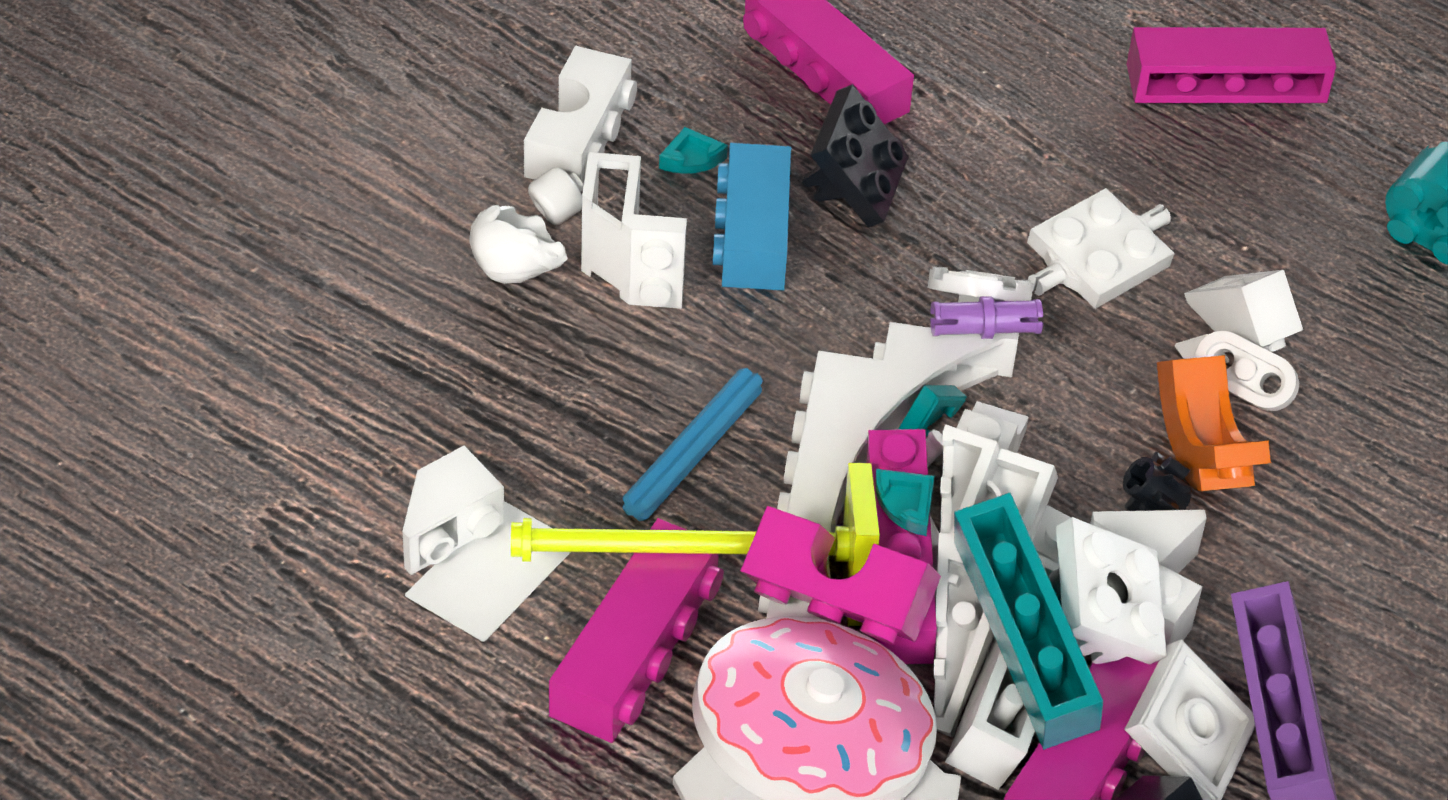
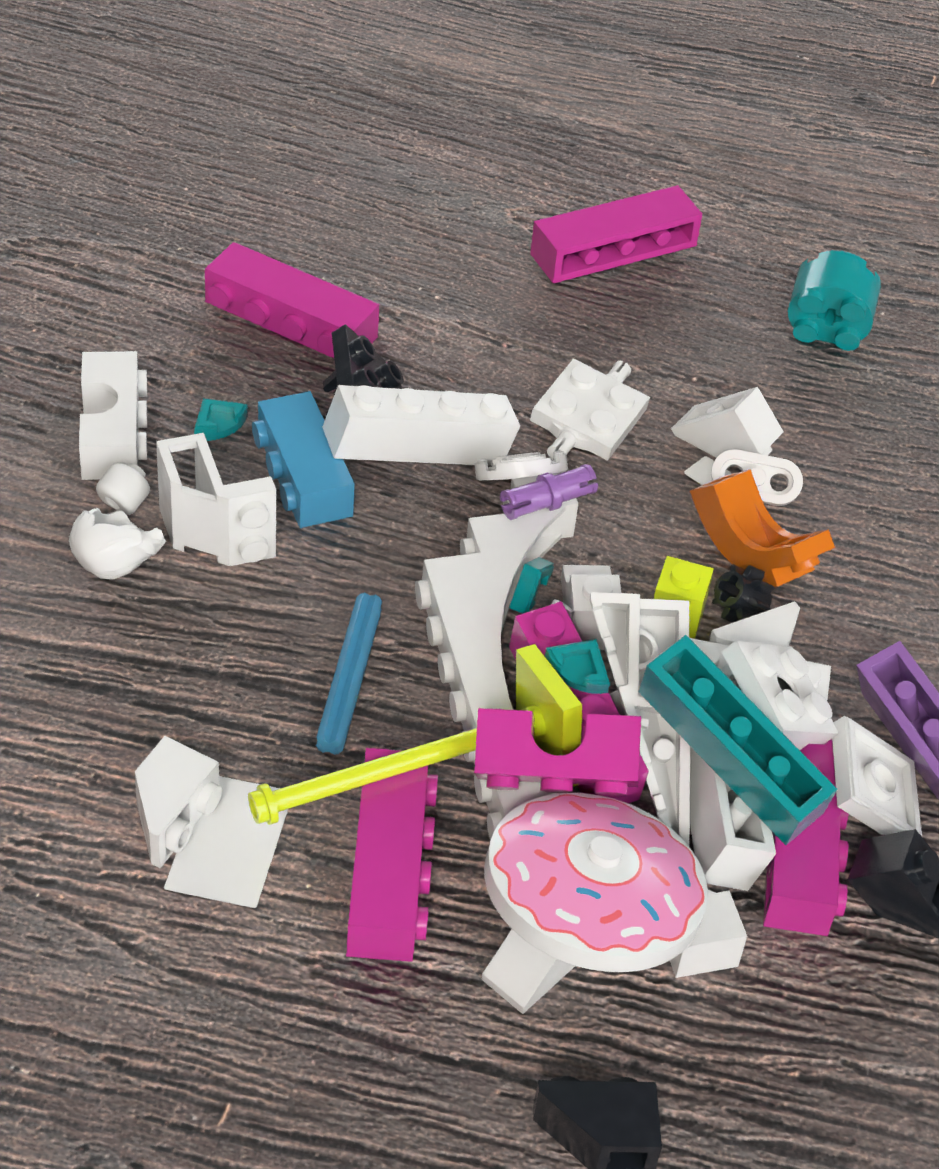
camera: 25 degrees left, 0 degrees up
(887, 212) = (419, 425): none -> white brick
(1087, 470) = (685, 582): none -> neon yellow brick

